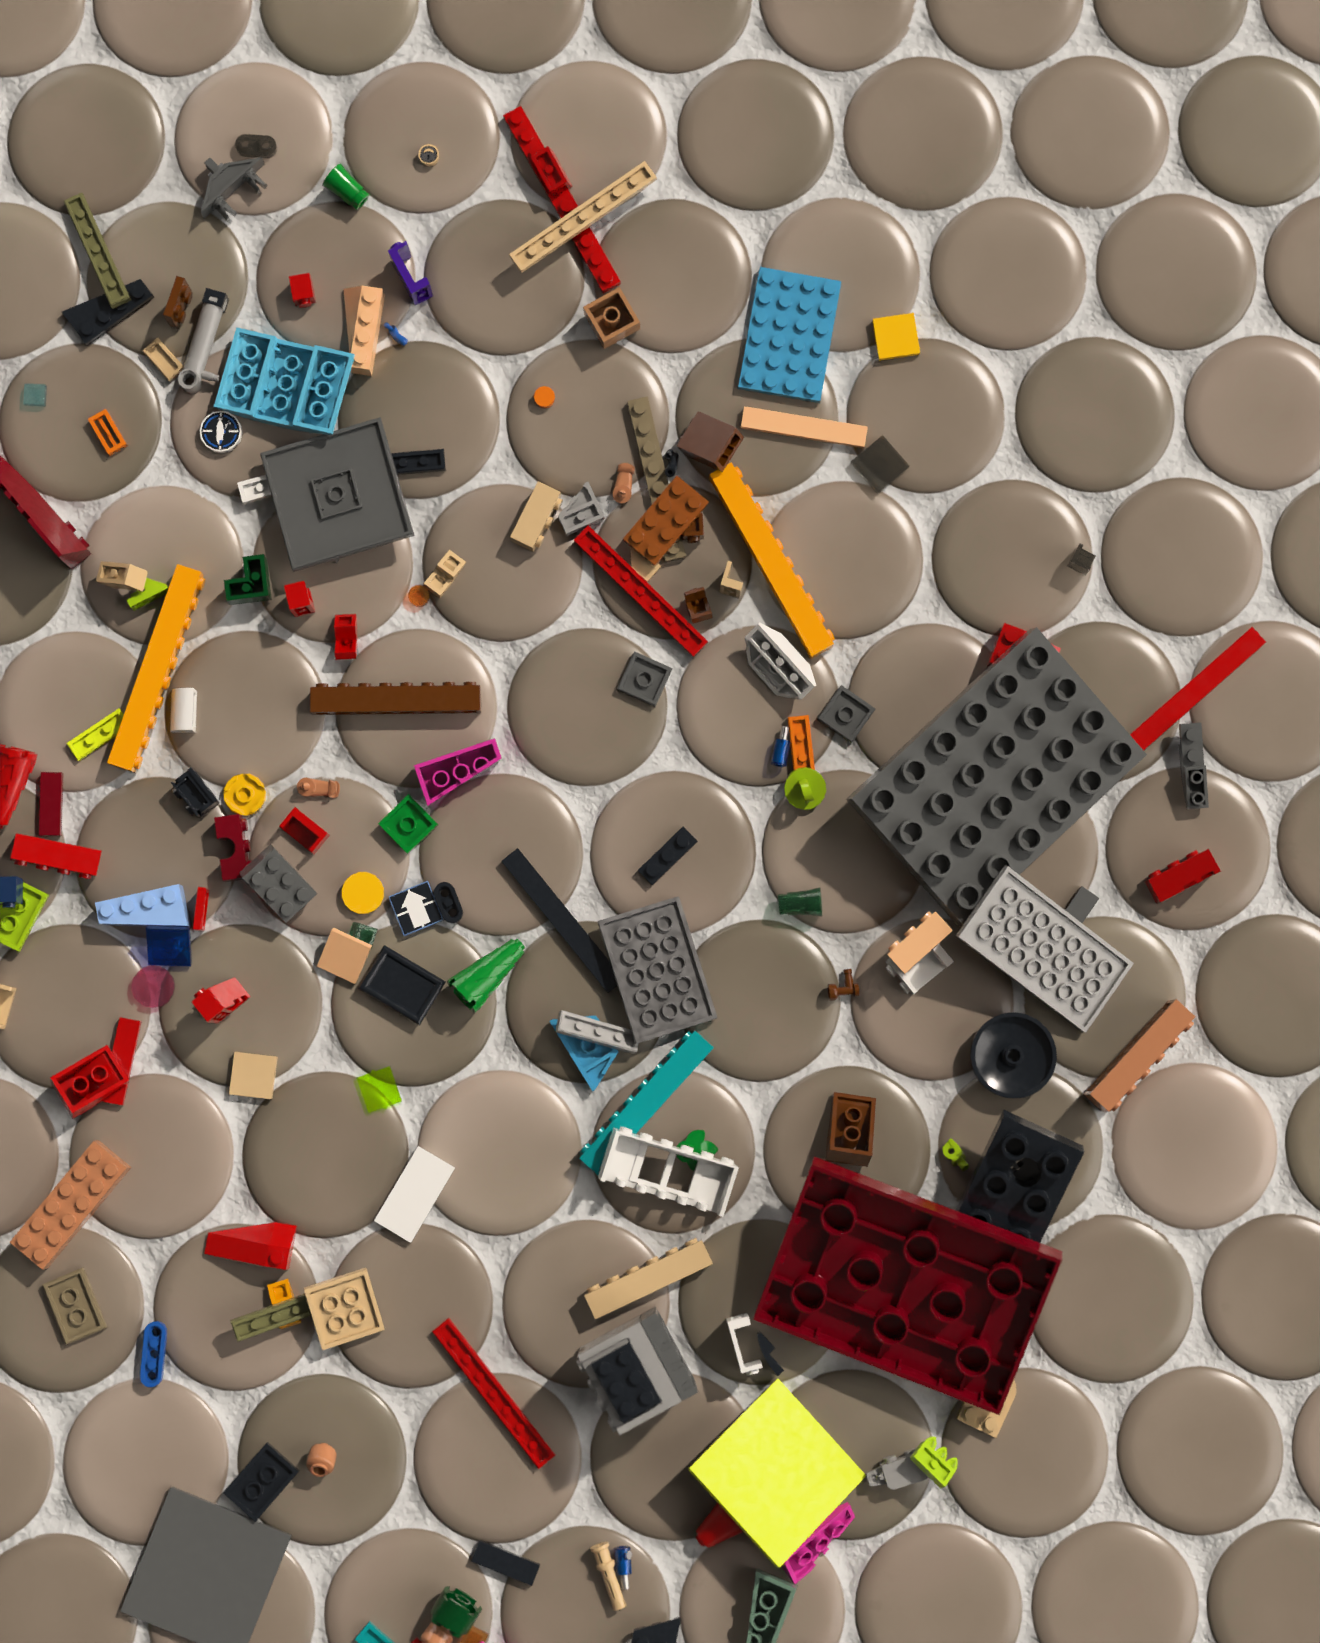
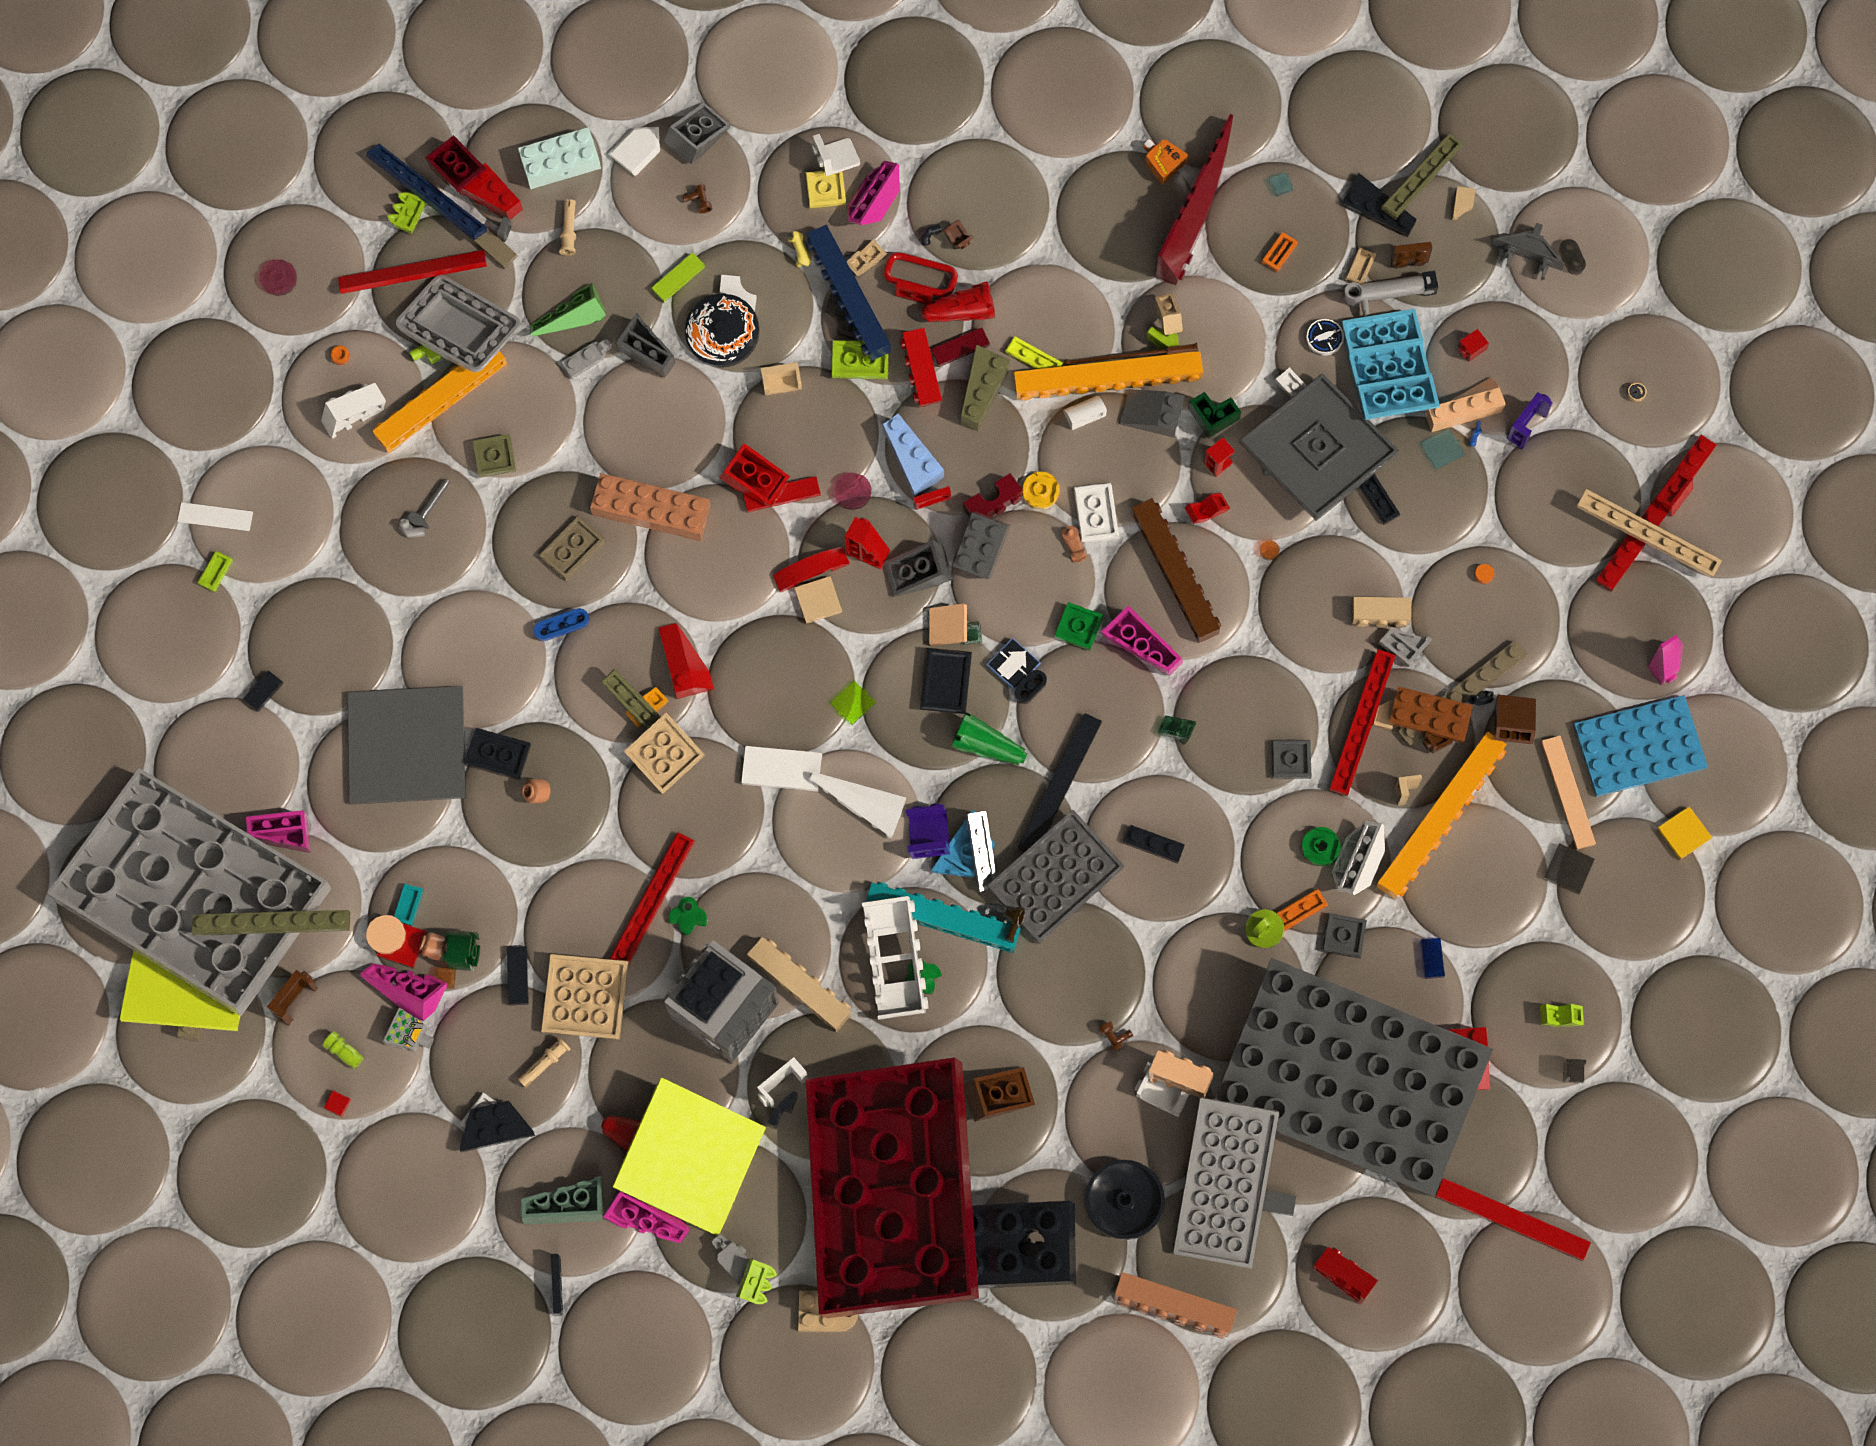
camera: 70 degrees right, 10 degrees down
(104, 799) = (984, 383): none -> olive wedge
(144, 223) = (1463, 201): none -> tan tile
(161, 594) = (1169, 350): none -> reddish brown piece
(169, 945) = (891, 486): clear blue tile -> none
(195, 793) = (1022, 451): black hinge -> none
(216, 642) = (1152, 411): none -> dark grey slope
(216, 1067) = (810, 567): none -> red slope
(270, 958) = (918, 569): none -> dark grey slope
(295, 750) = (1096, 512): none -> white tile
(304, 830) = (1034, 548): red panel -> none
(345, 187) = (1575, 339): green plant -> none
(363, 893) = (1006, 617): yellow tile -> none
(395, 373) = (1442, 449): none -> clear light blue piece
(444, 574) = (1297, 562): tan slope -> none
(502, 1115) = (874, 805): none -> white wedge
(527, 1361) = (688, 918): none -> green plate
(552, 1076) = (928, 831): none -> dark purple panel
(561, 1504) = (585, 996): none -> tan plate
(562, 777) = (1177, 728): none -> clear green slope
(611, 318) = (1577, 595): medium nougat brick -> none
(623, 485) = (1440, 670): nougat piece -> none
(623, 1564) = (557, 1070): clear blue piece -> none
(682, 1030) = (1015, 916): none -> dark brown bar
(697, 605) = (1374, 773): reddish brown bracket -> none
(722, 265) = (1667, 660): none -> dark pink wedge
(745, 681) = (1330, 841): none -> green plate
(781, 749) = (1288, 895): clear blue piece -> none
(801, 902) = (1168, 968): clear green plant -> none
(908, 640) = (1432, 958): none -> clear blue plate
(957, 1157) = (1017, 1194): lime piece -> none
(1021, 544) = (1561, 1015): none -> lime slope
(1192, 765) = (1445, 1243): dark grey slope -> none

